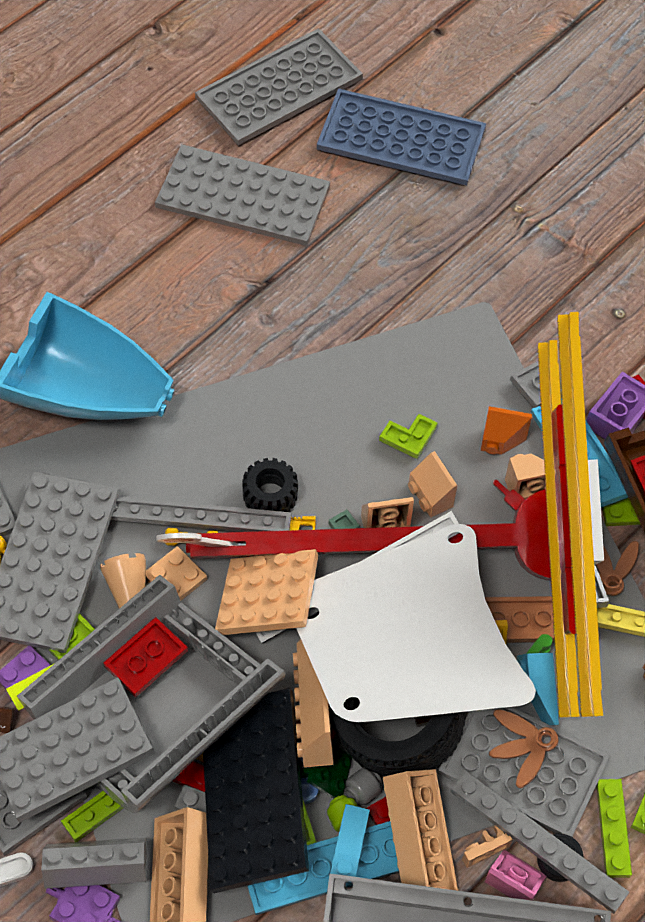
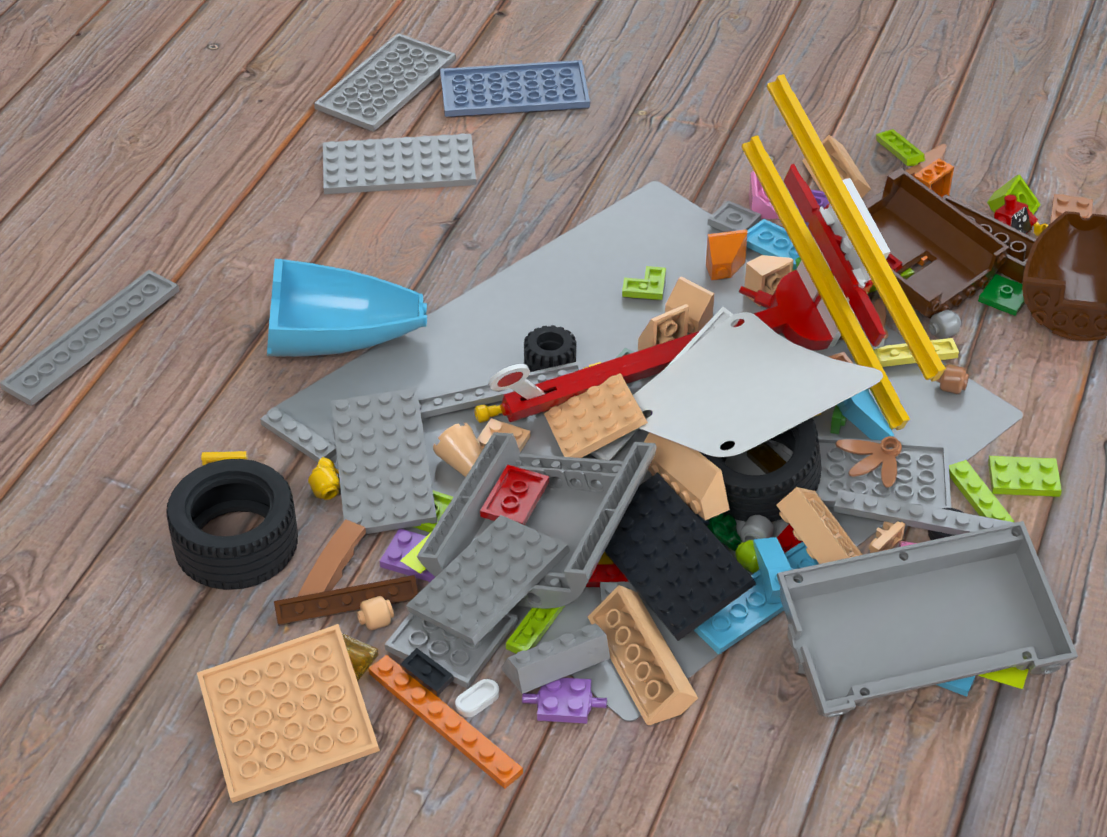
camera: 20 degrees left, 15 degrees down
(591, 366) = (758, 199): none -> bright pink slope

